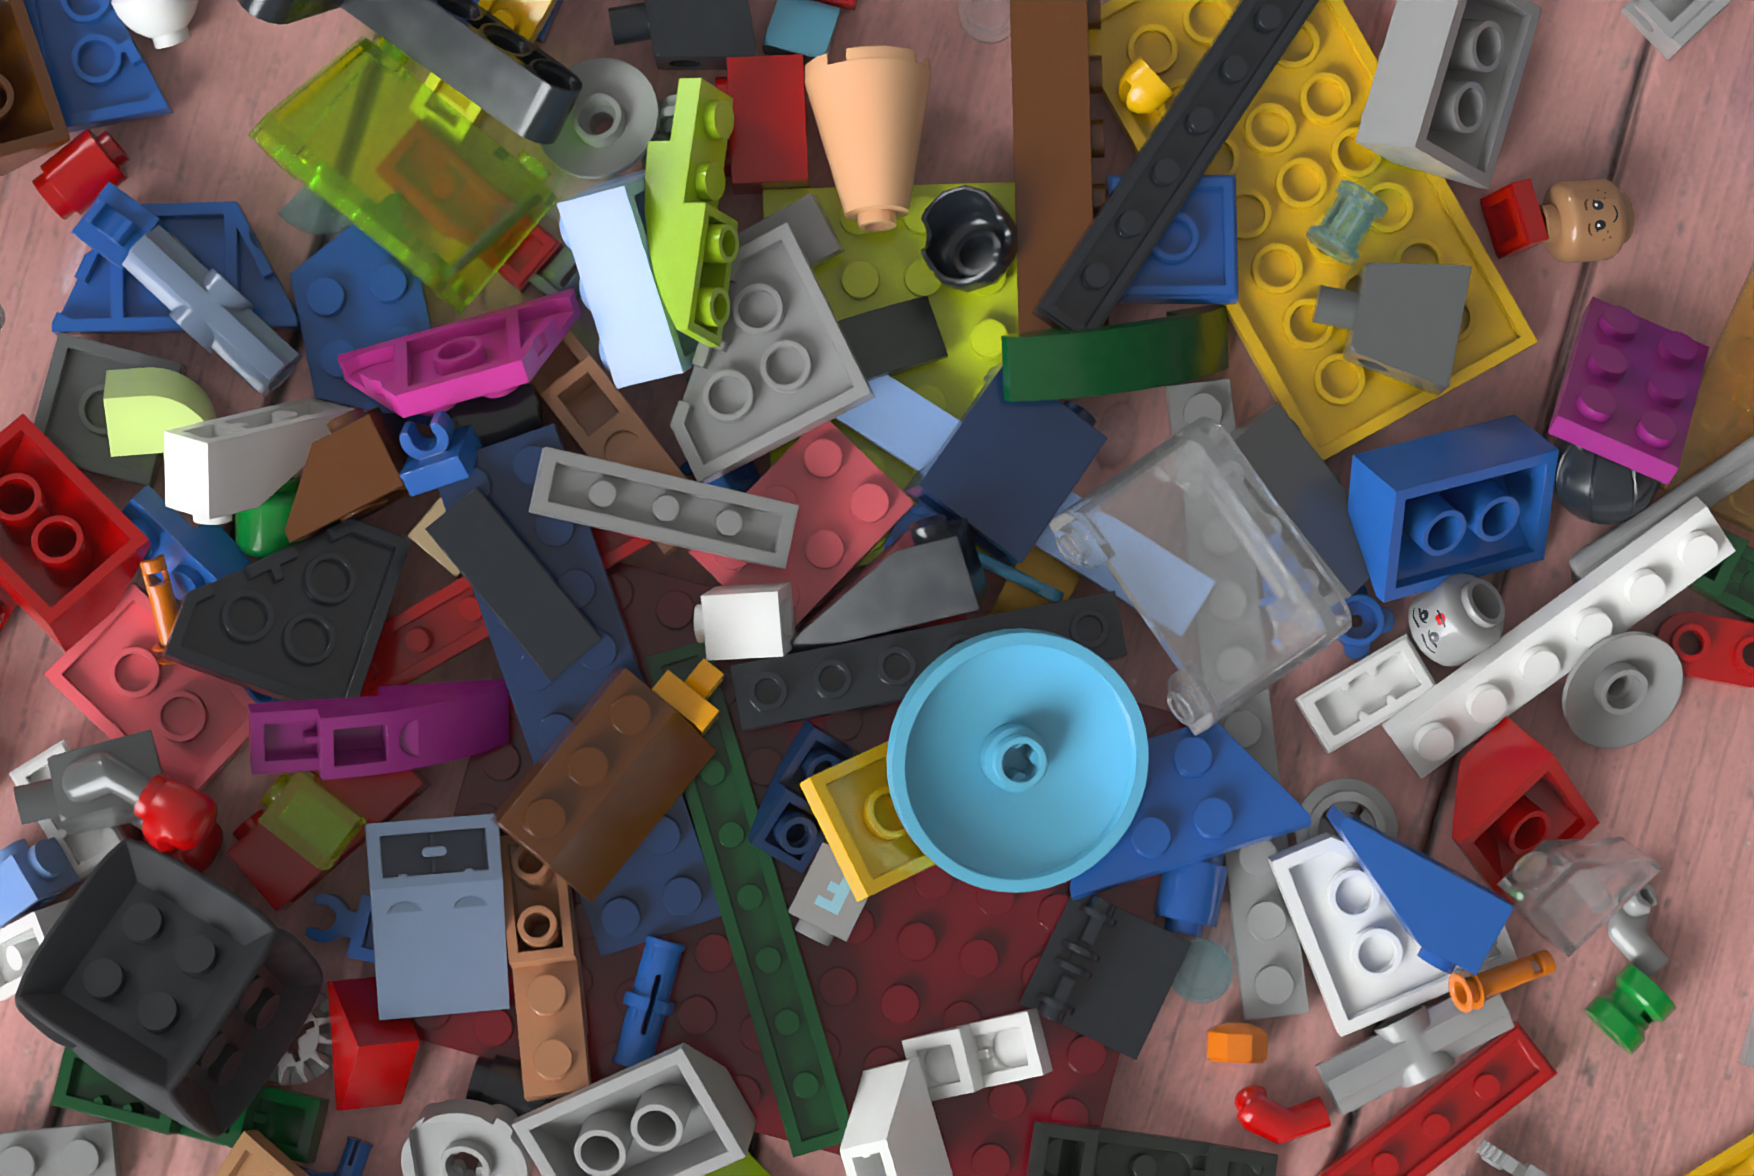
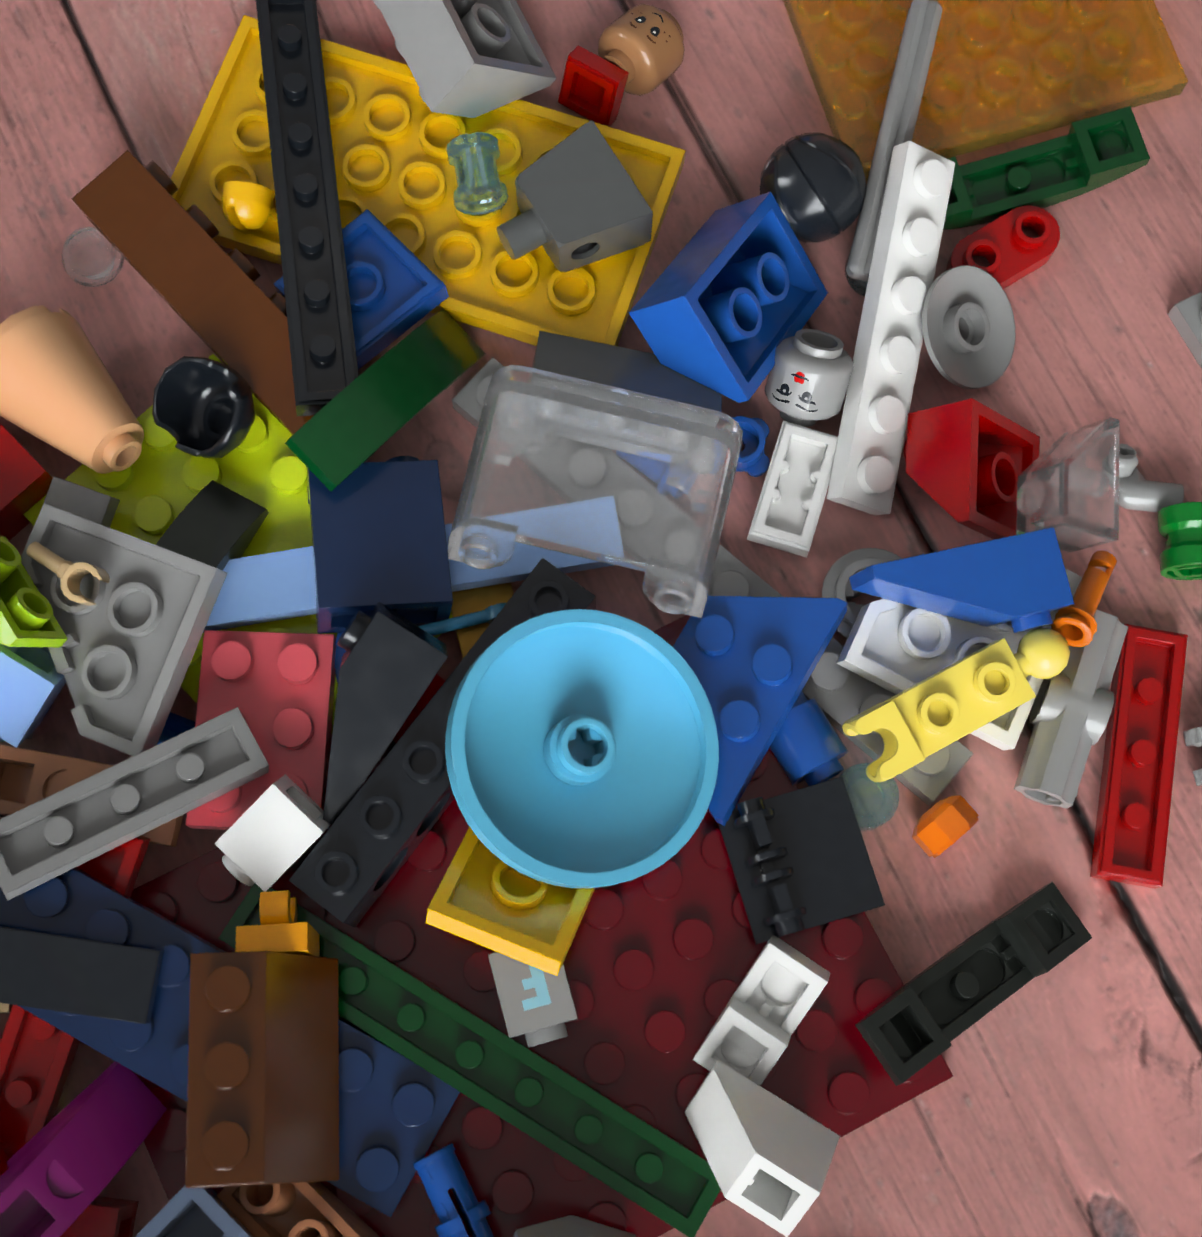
camera: 45 degrees left, 10 degrees down
(761, 296) = (68, 572): none -> tan hand
(785, 820) = (444, 965): dark blue slope -> none
(1275, 1121) = (1025, 858): red arm -> none
(1327, 965) = (958, 700): none -> light yellow plate
(1629, 390) = (781, 119): magenta plate -> none

